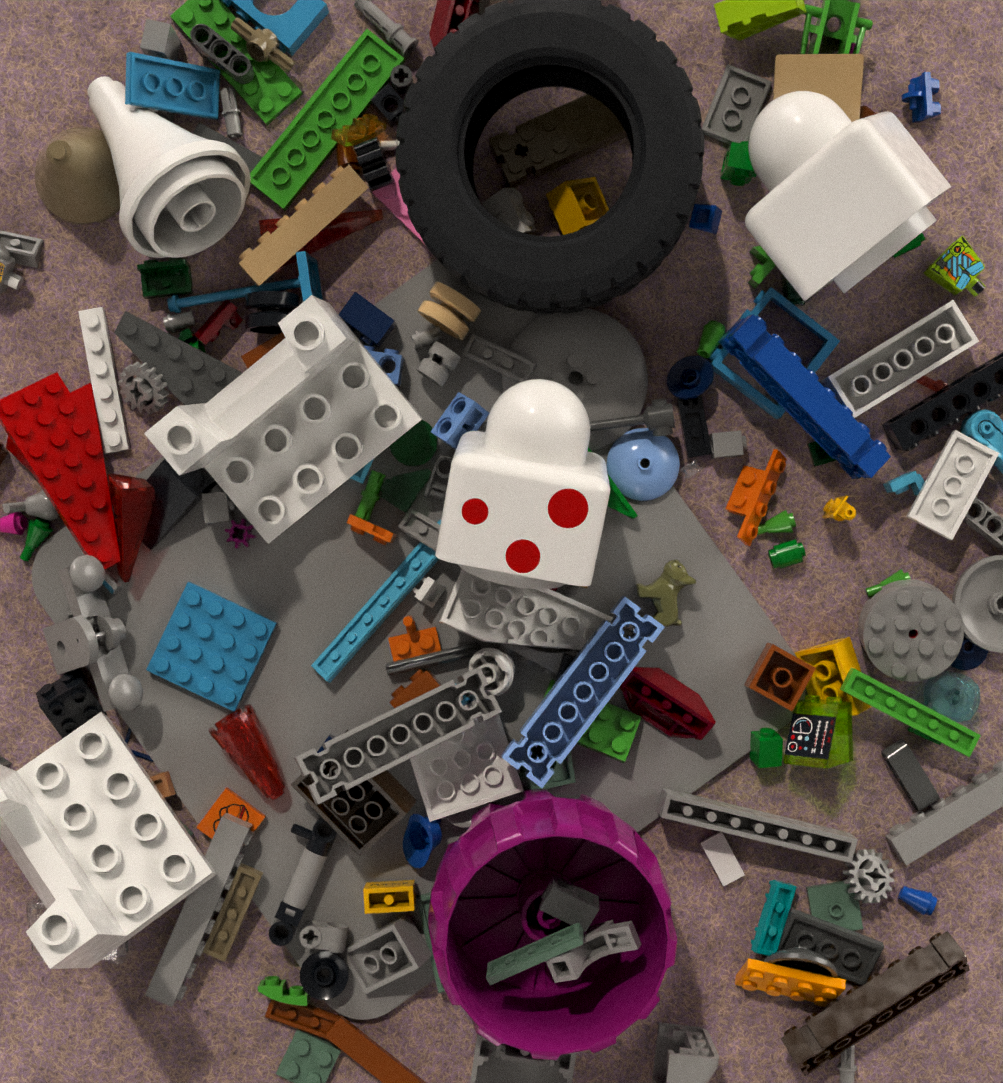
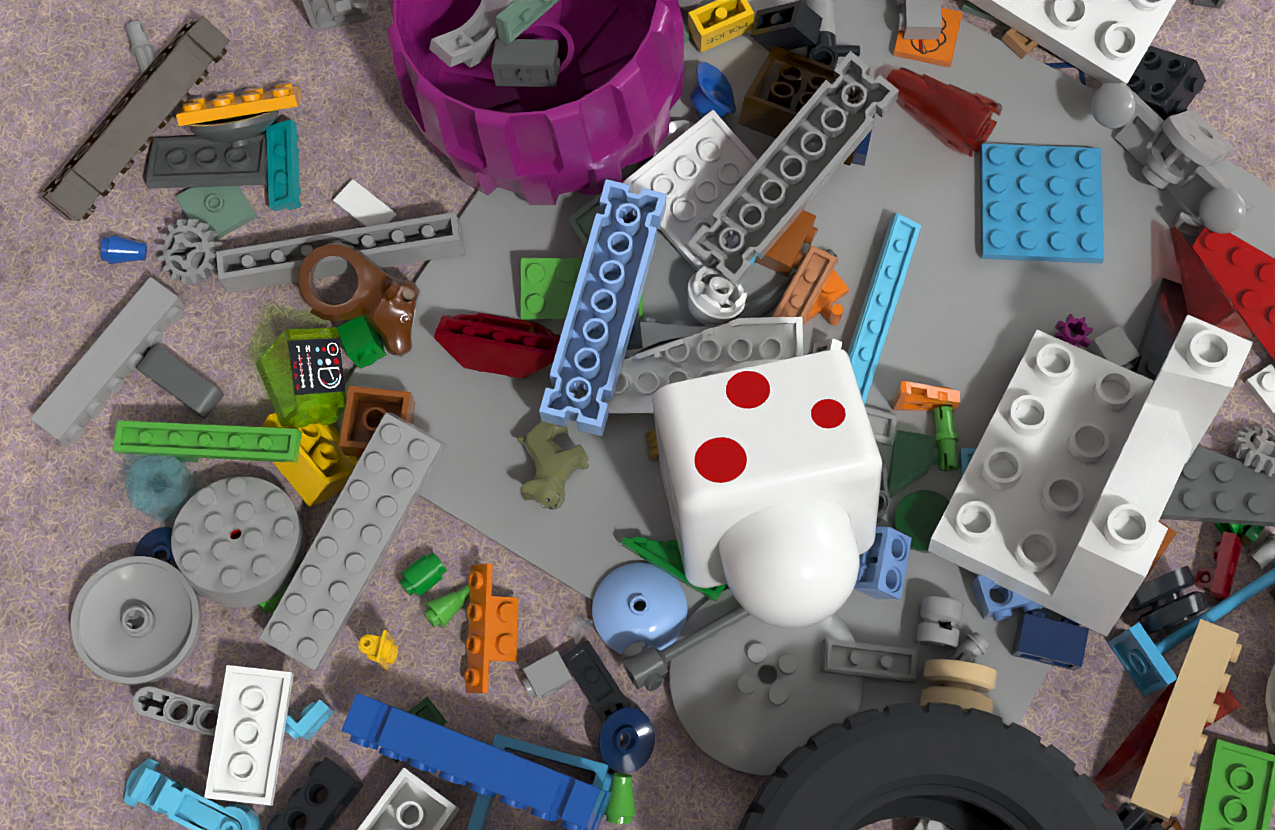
camera: 160 degrees right, 15 degrees down
(342, 867) = (786, 26): none -> black brick
(423, 649) = (806, 284): none -> nougat tile
(741, 771) = (380, 298): none -> reddish brown animal
(829, 594) = (353, 541): none -> light grey brick

